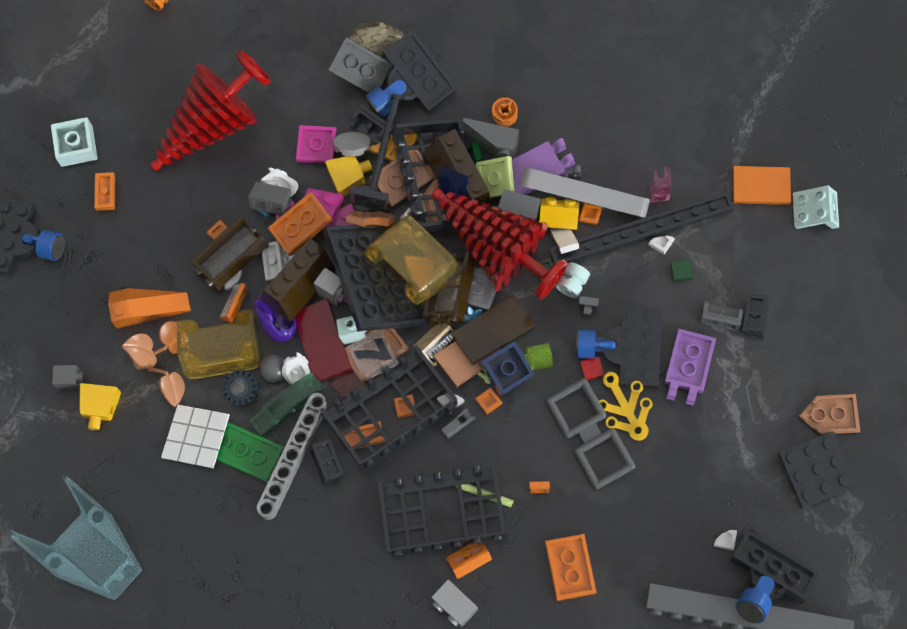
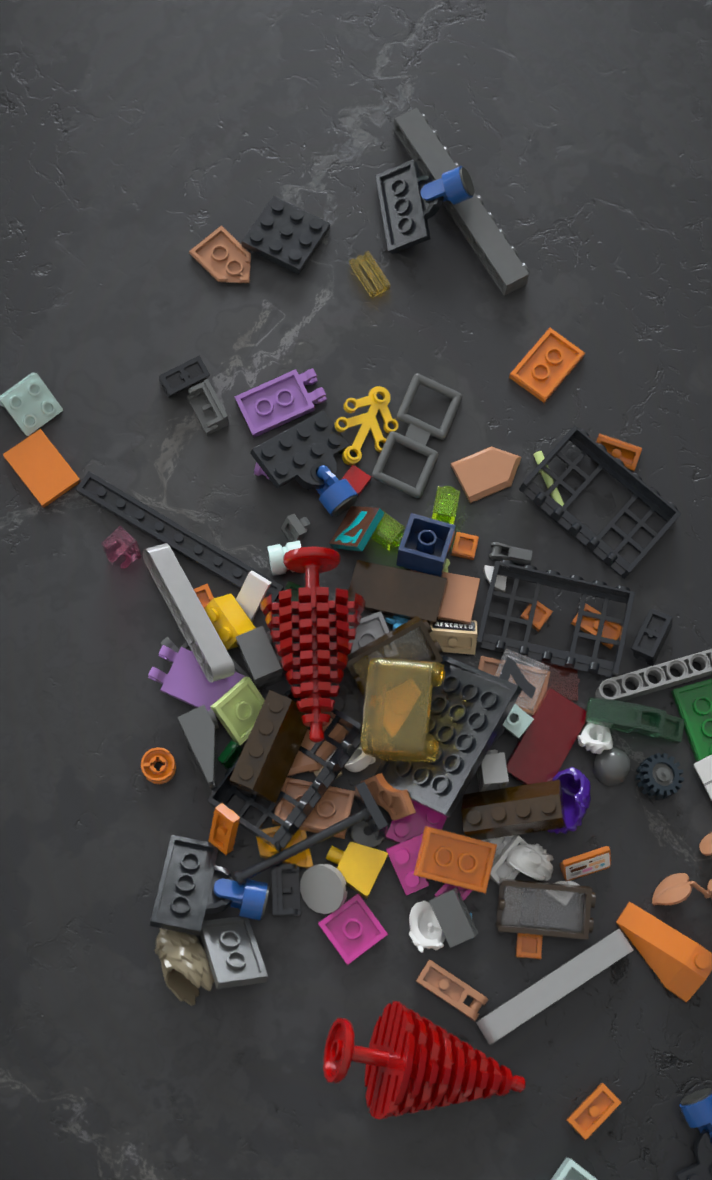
camera: 140 degrees left, 0 degrees up
(184, 227) = (554, 986): none -> light grey beam
(218, 348) = (639, 837): clear yellow windscreen -> none
(235, 170) = (451, 989): none -> nougat plate
(261, 270) = (531, 860): none -> white hat
(432, 113) = (224, 828): none -> orange plate
(452, 182) = (291, 736): clear blue piece -> none
(454, 603) = (666, 428): light grey brick -> none
(525, 409) = (446, 504): none -> clear neon green brick
(527, 458) = (486, 472): none -> nougat tile
(539, 487) = (504, 438): orange tile -> none
(555, 336) = (357, 528): none -> tile
(661, 243) = (177, 512): white tile -> none
(681, 270) = (190, 475): dark green tile -> none
(726, 540) = (410, 263): white tile -> none
(757, 506) = (362, 260): none -> clear yellow tile

